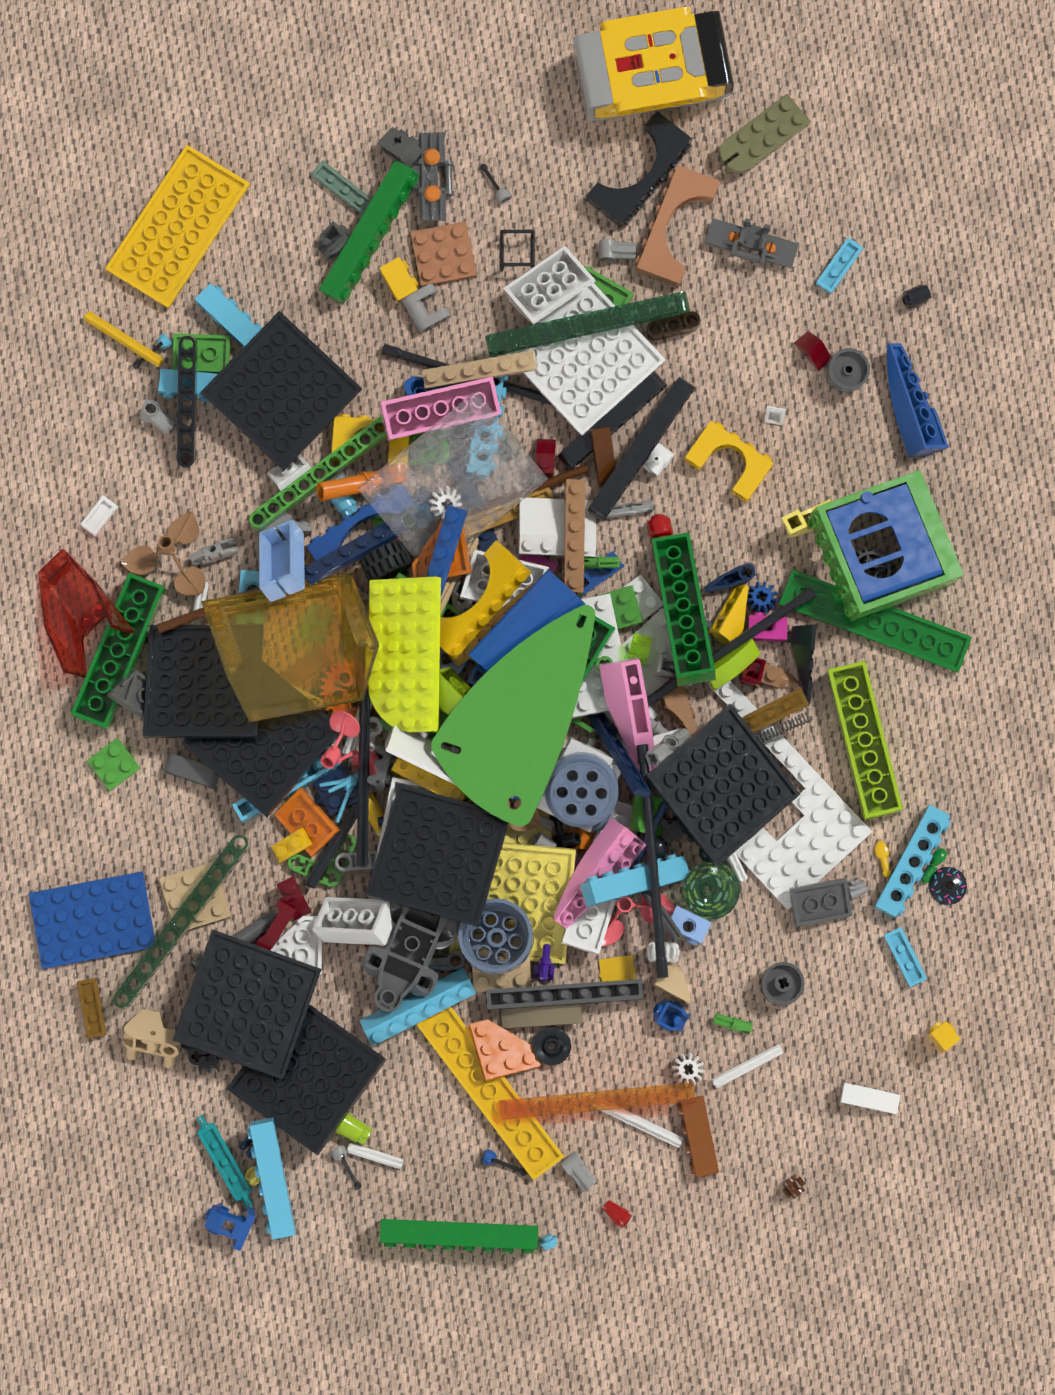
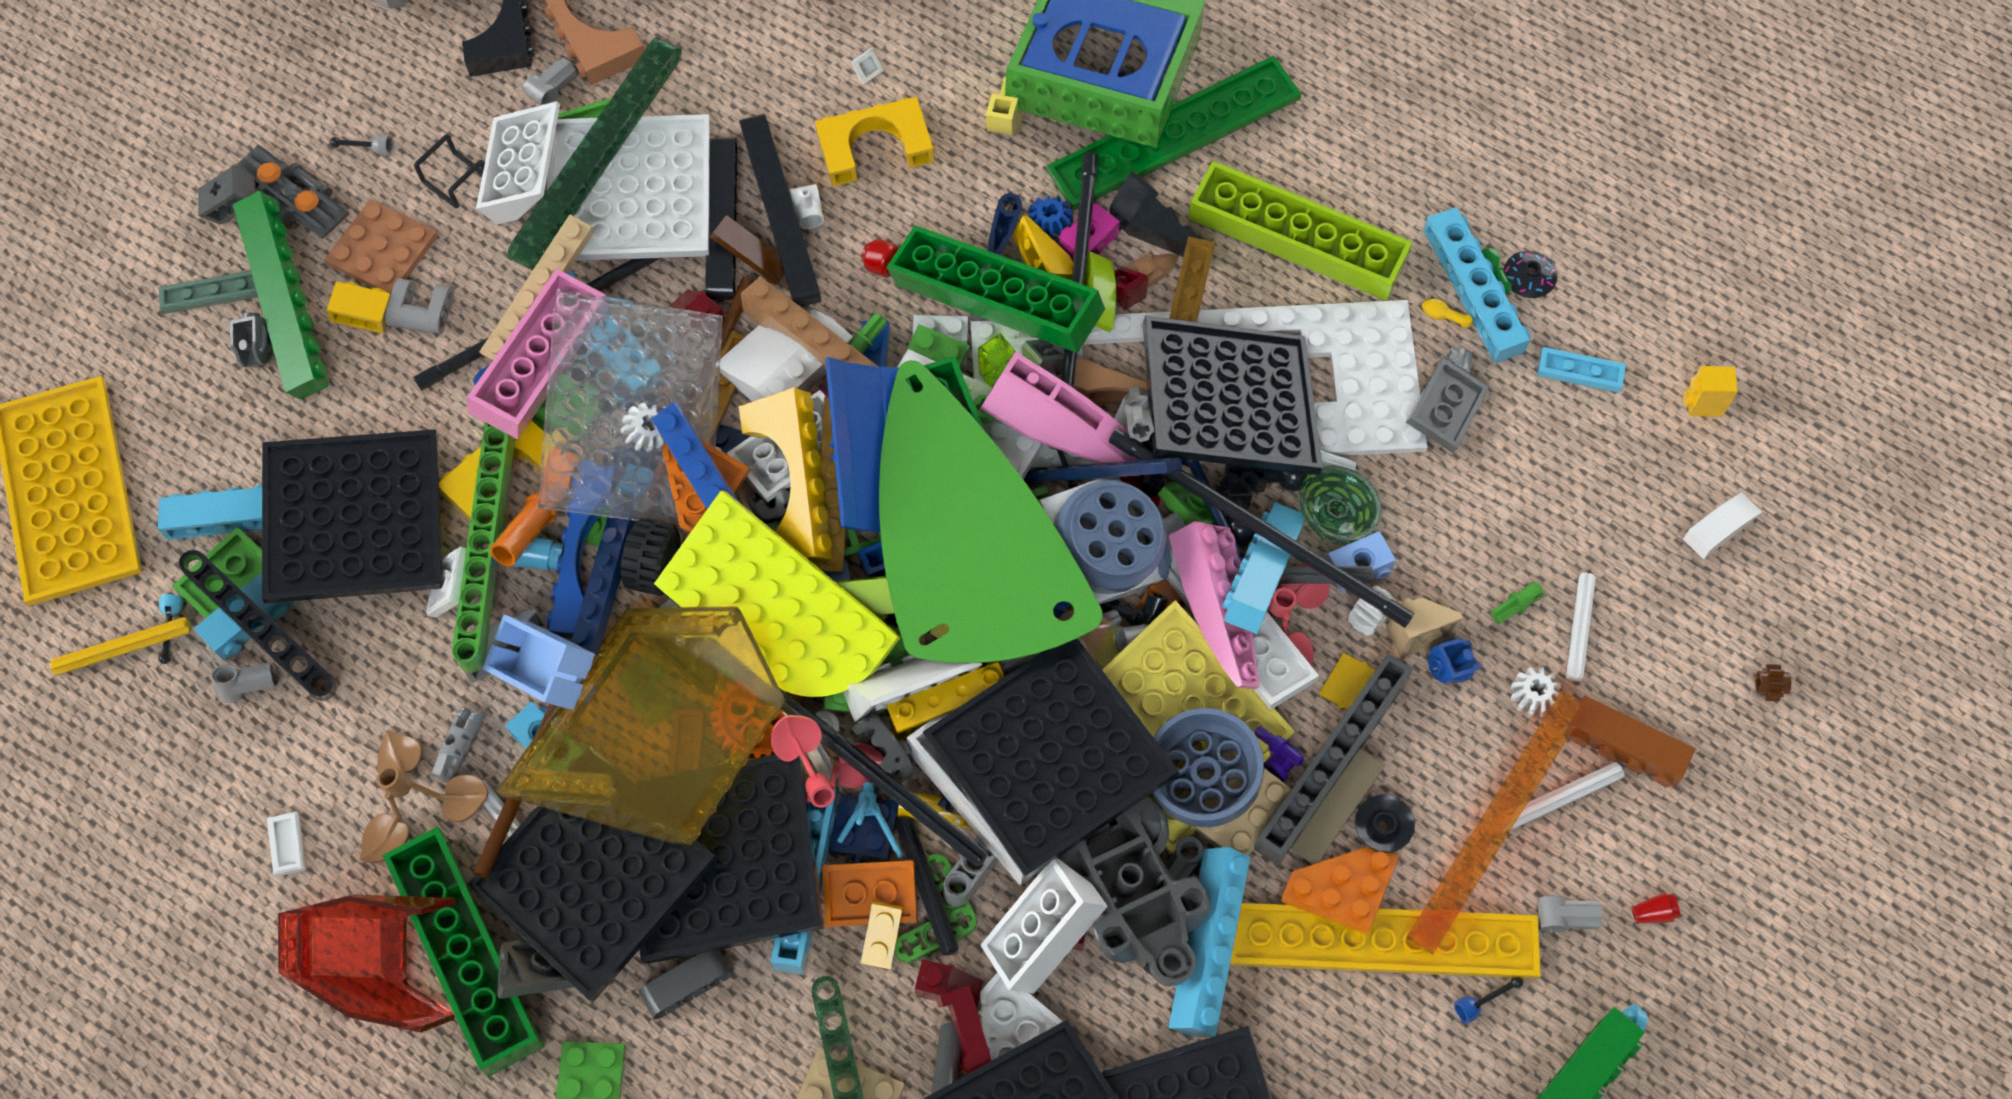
camera: 50 degrees left, 15 degrees down
(631, 509) = (834, 270): light grey pin -> none
(666, 332) = (689, 76): dark brown beam -> none
(782, 972) = (1513, 513): dark grey wheel -> none
(784, 730) = (1215, 289): dark grey piece -> none

